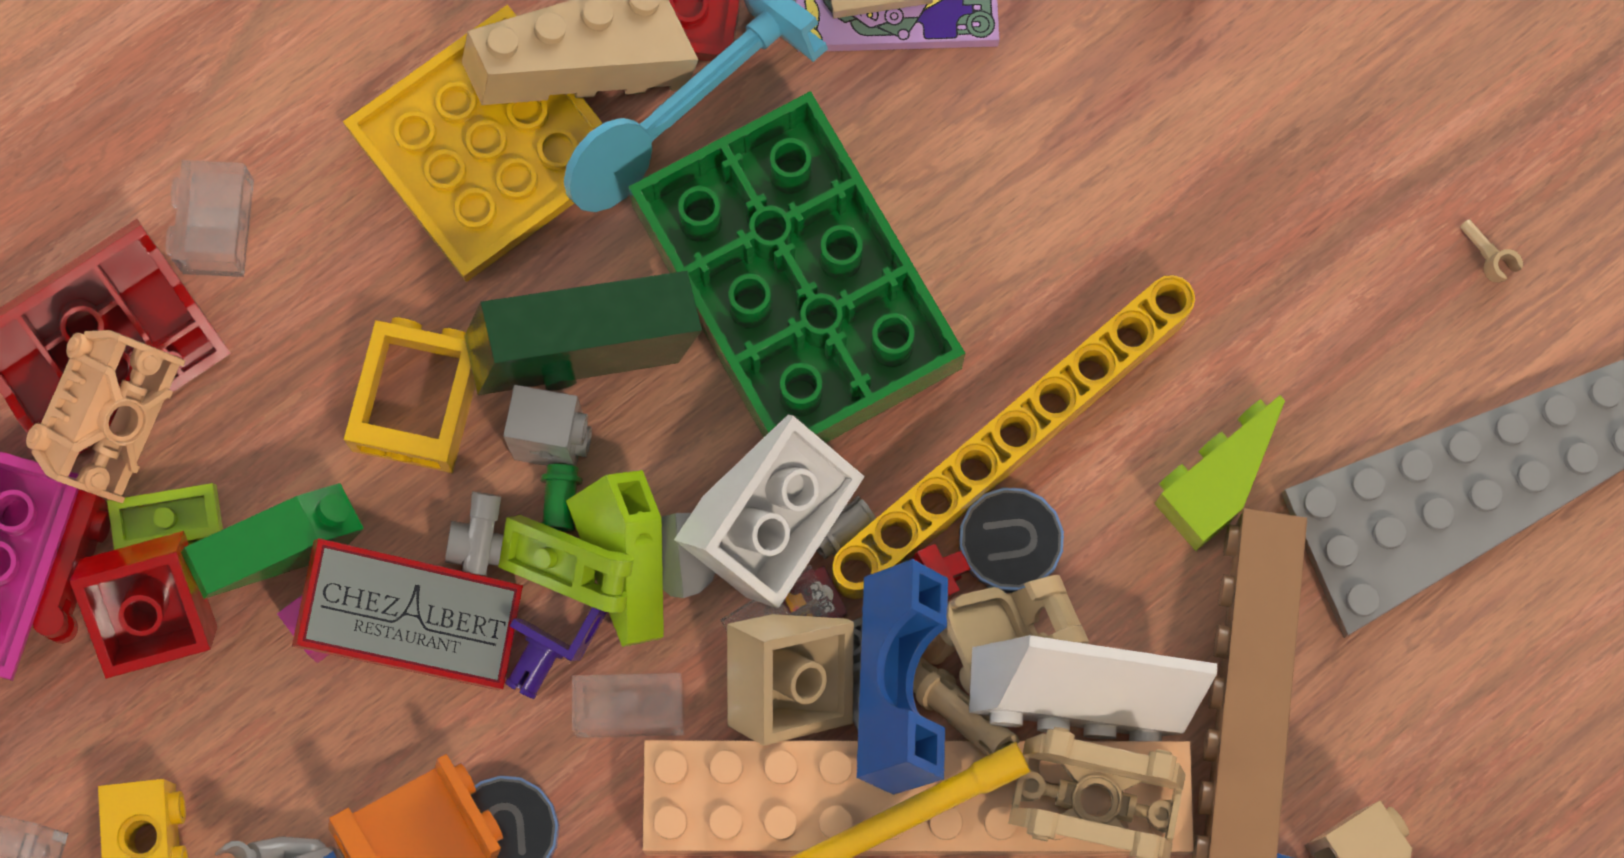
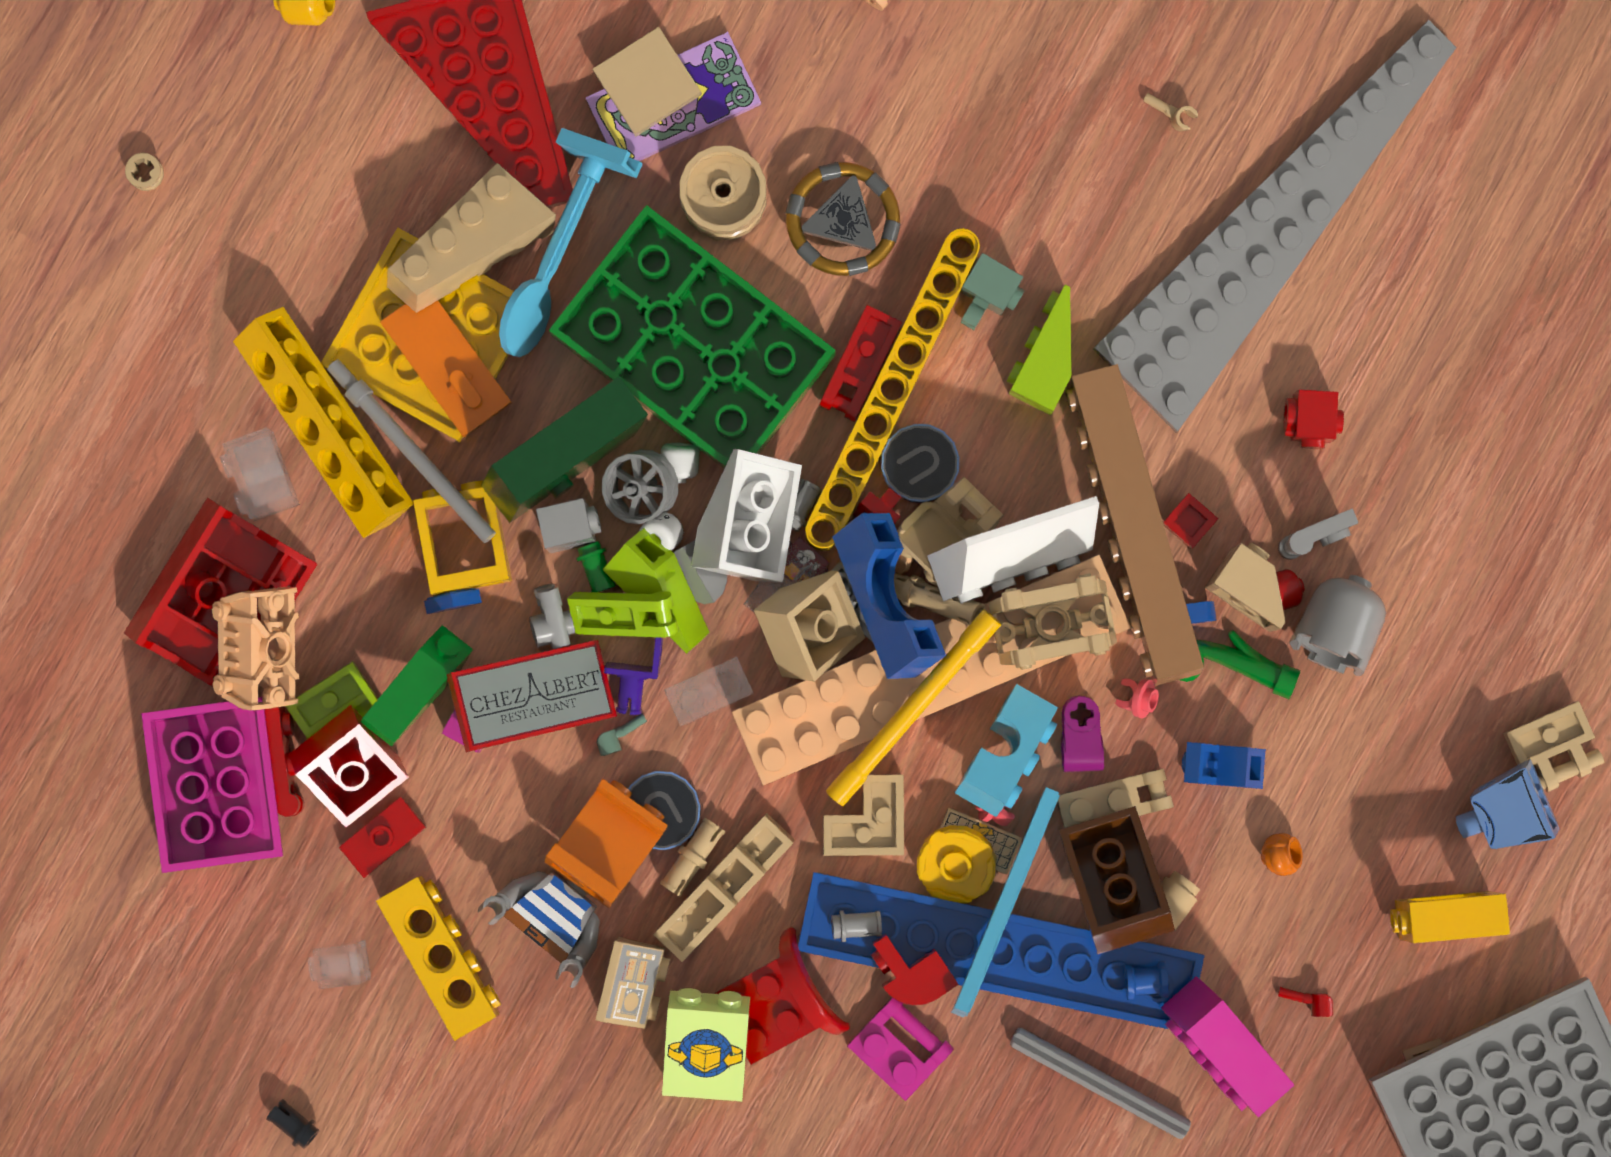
camera: 25 degrees left, 10 degrees up
(149, 715) = (382, 837): none -> red plate
(313, 188) = (323, 422): none -> yellow brick
(369, 463) = (452, 600): none -> blue tile
(373, 174) = (361, 395): none -> light grey bar
(479, 714) = (609, 742): none -> sand green hand
(491, 183) = (447, 365): none -> orange piece
(656, 420) = (640, 486): none -> light grey wheel
(666, 485) = (666, 528): none -> white piece
(718, 414) = (683, 458): none -> white piece
(909, 120) = (714, 170): none -> tan wheel
(990, 386) = (861, 361): none -> red plate
(1039, 209) = (843, 218): none -> piece
(1186, 365) = (990, 287): none -> sand green brick
(1320, 752) = (1190, 521): none -> red plate
(1489, 834) = (1326, 531): none -> light grey plate
(1526, 689) = (1313, 418): none -> red brick

